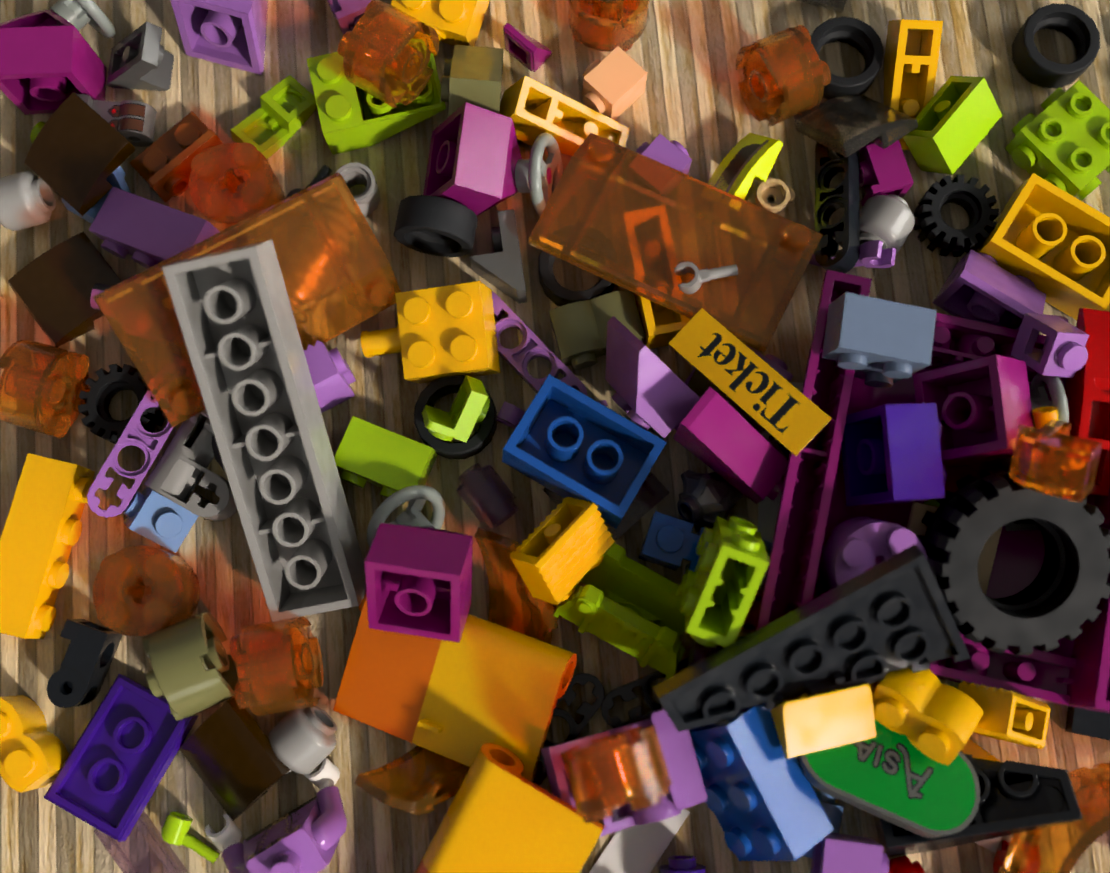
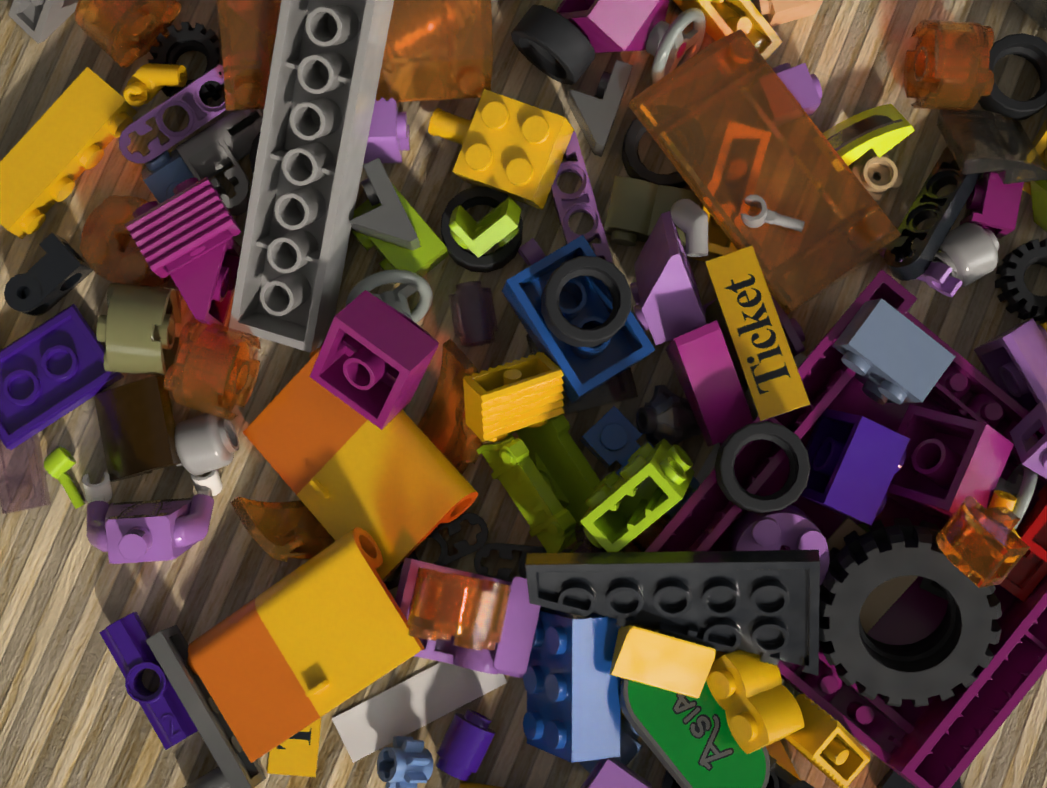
camera: 20 degrees right, 5 degrees up
(91, 436) = (151, 79): none -> yellow arm
(182, 552) = (182, 226): none -> magenta brick
(222, 581) = (210, 282): none -> magenta slope
(369, 452) = (389, 220): none -> dark grey slope
(584, 396) = (610, 276): none -> black tyre
(640, 314) = (694, 224): none -> light grey arm
(851, 475) = (796, 455): none -> black tyre

